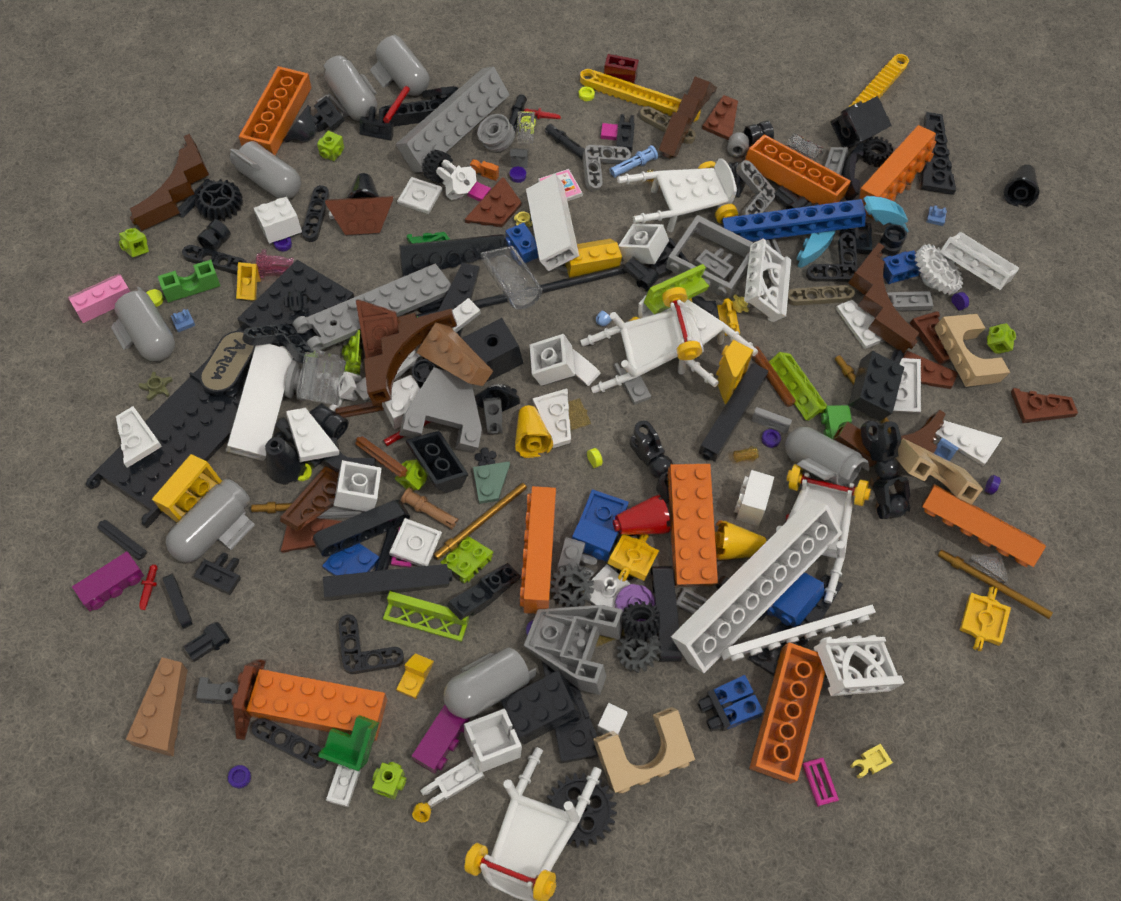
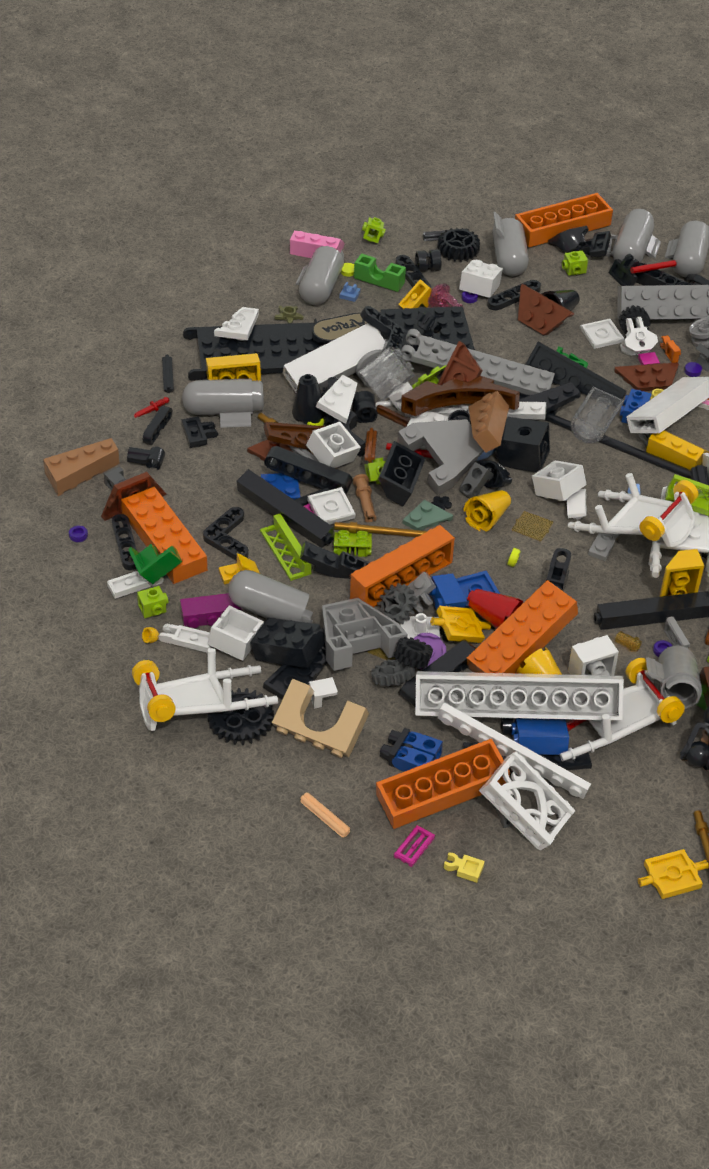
camera: 50 degrees right, 15 degrees down
(108, 581) = (133, 385): magenta brick -> none
(177, 187) = (419, 222): reddish brown arch -> none
(555, 414) = (519, 515): white wing -> none
(736, 826) = (325, 815): none -> light nougat axle

